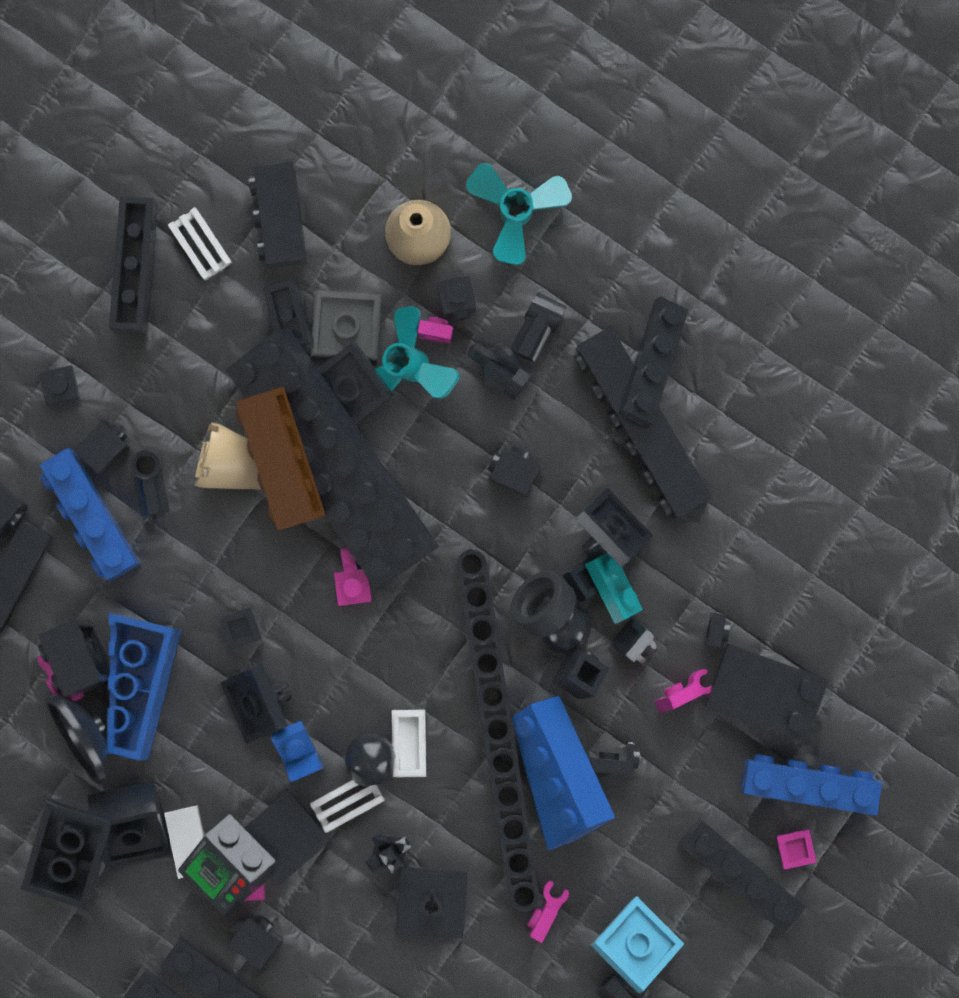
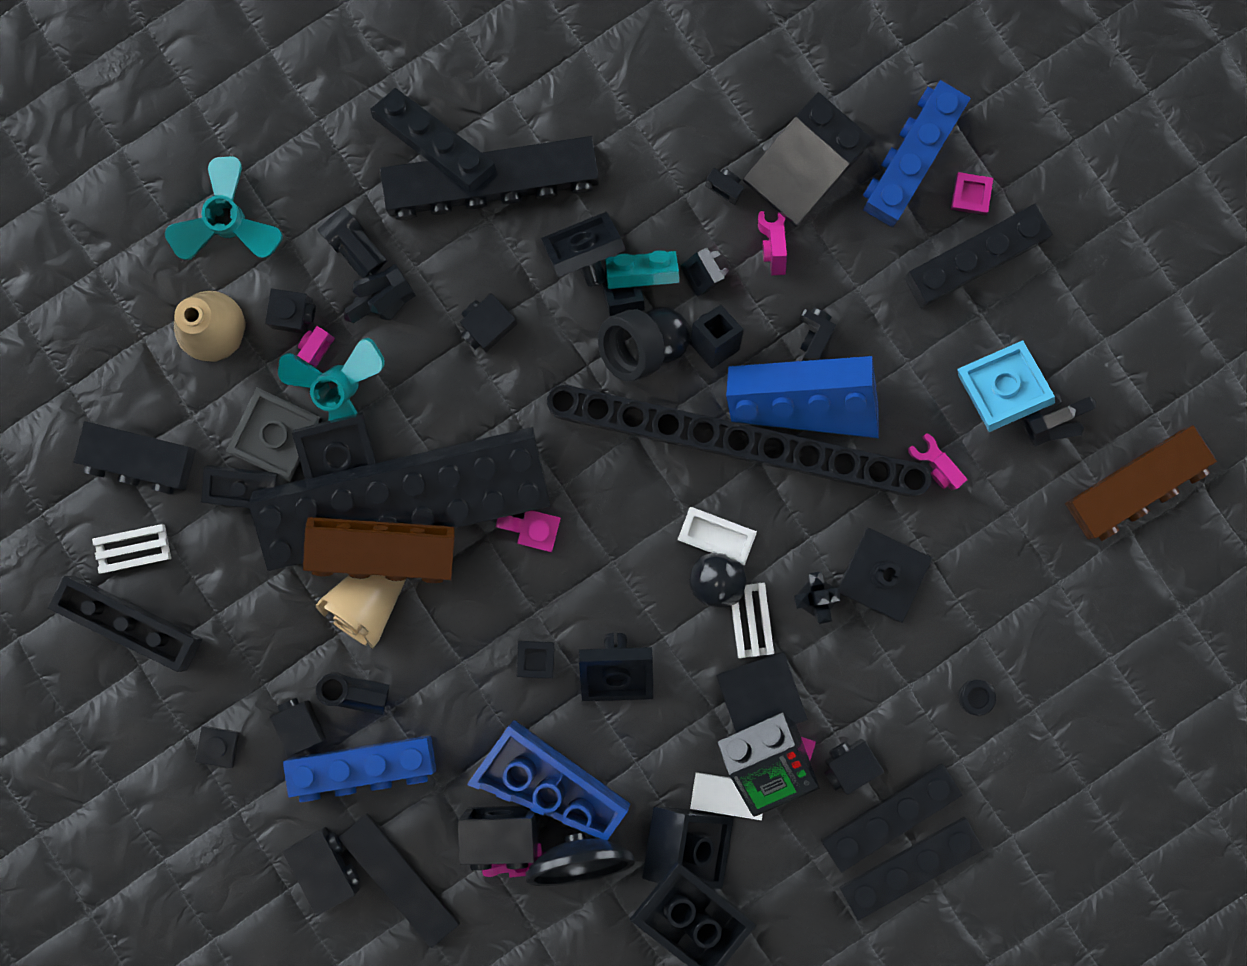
camera: 60 degrees left, 0 degrees up
(297, 751) = (680, 649): blue slope -> none

